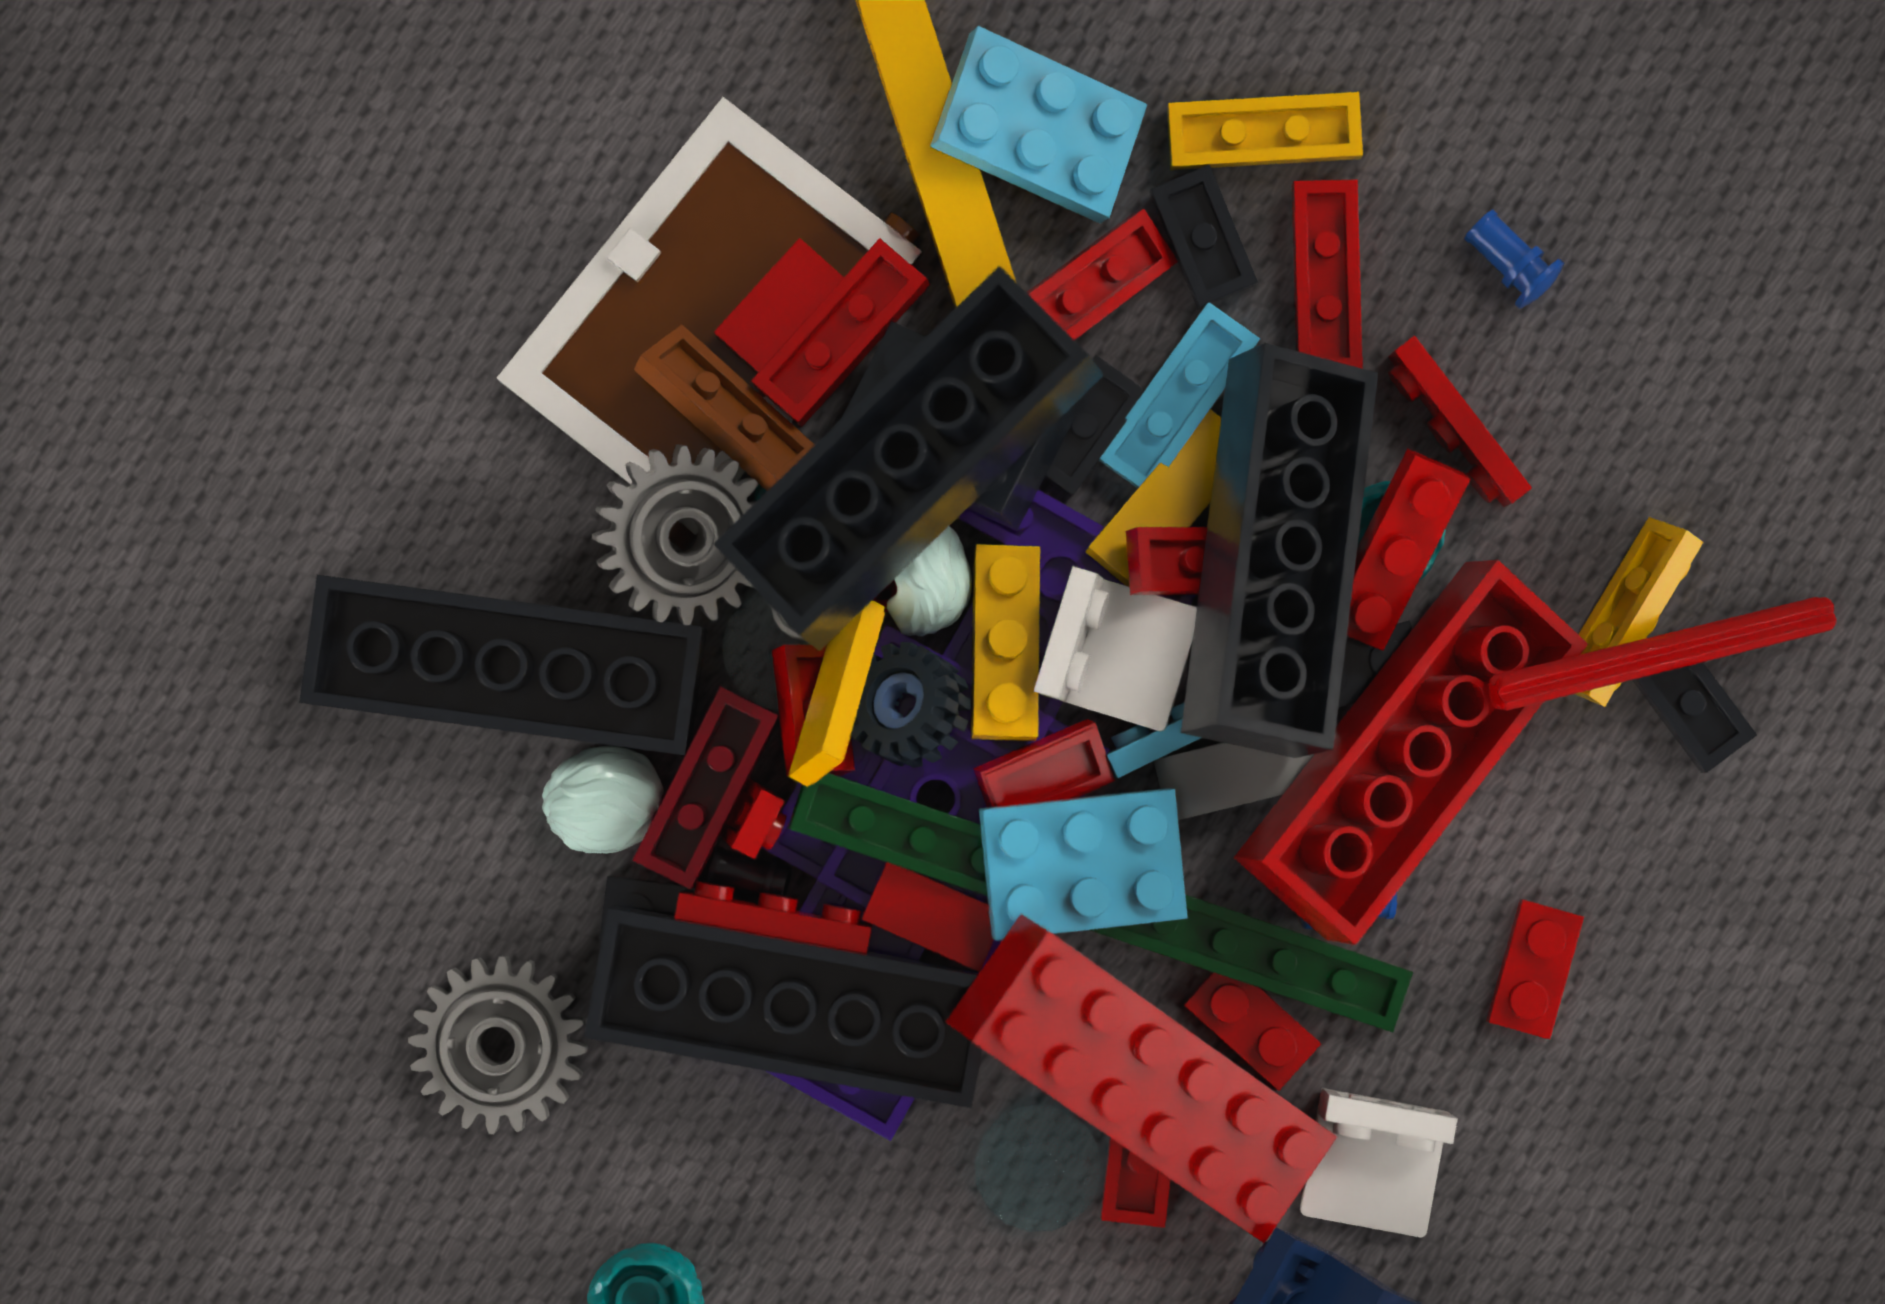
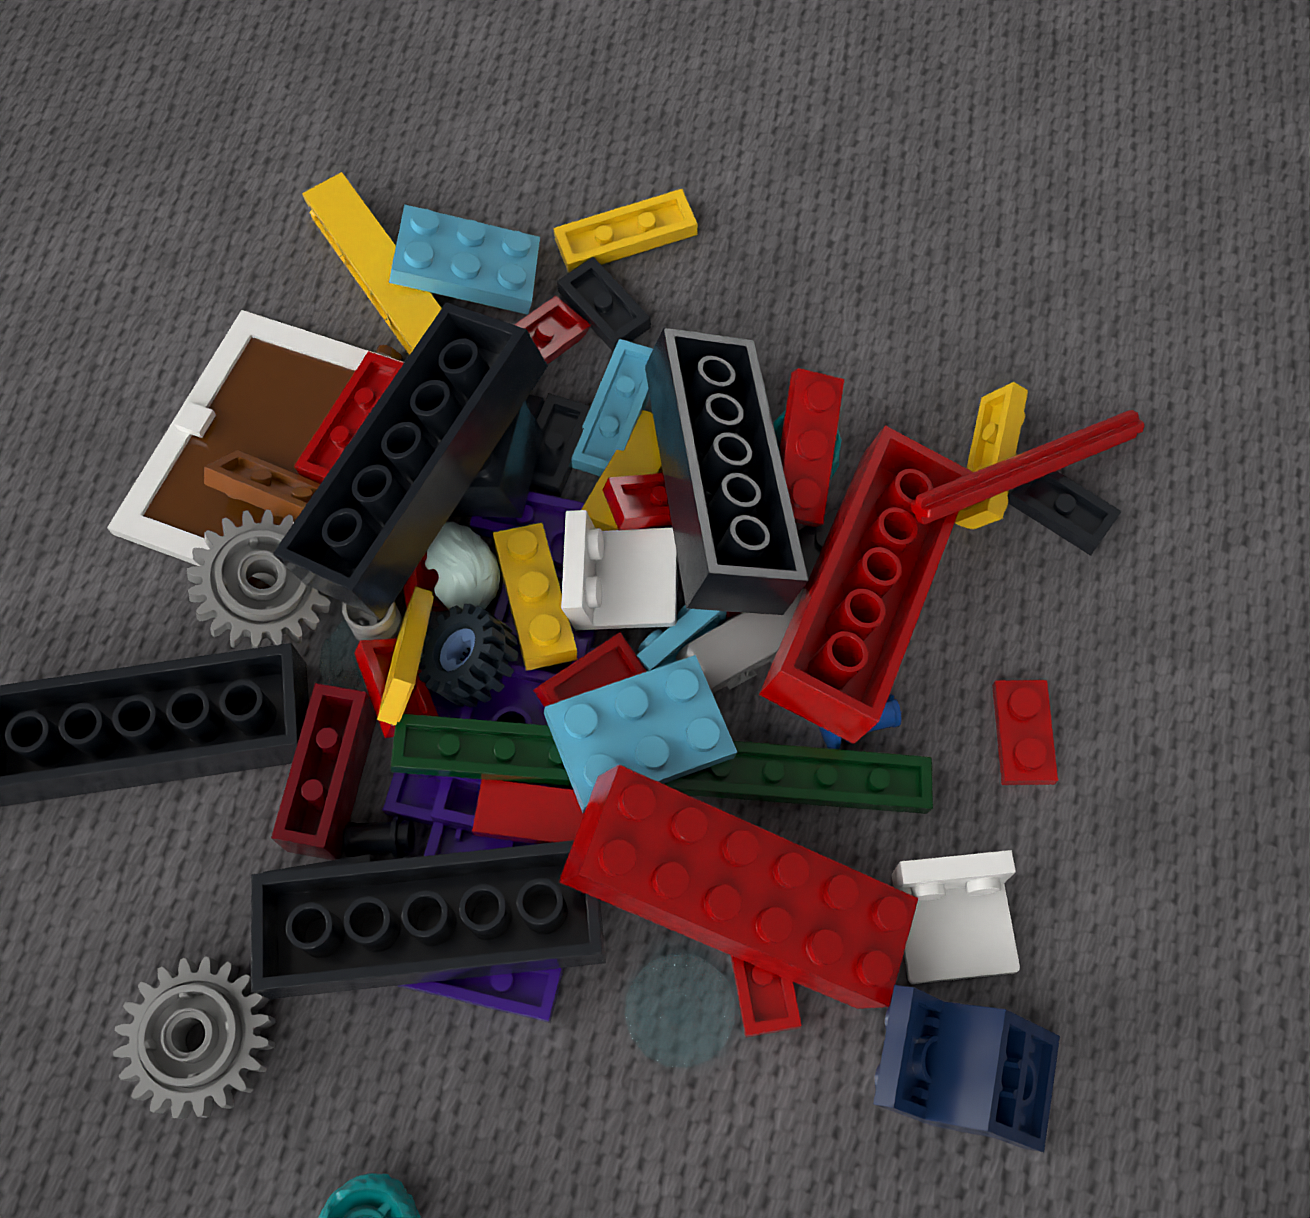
camera: 10 degrees left, 20 degrees down
(602, 799) = (241, 810): light aqua hair -> none
(755, 820) = (368, 781): red plate -> none
(774, 917) = (399, 846): red plate -> none
(778, 305) = (302, 418): red tile -> none
(1253, 1027) = (822, 834): red plate -> none
(1327, 270) = (693, 289): red plate -> none
(1456, 424) = (789, 346): red plate -> none
(1513, 258) = (825, 261): blue pin -> none

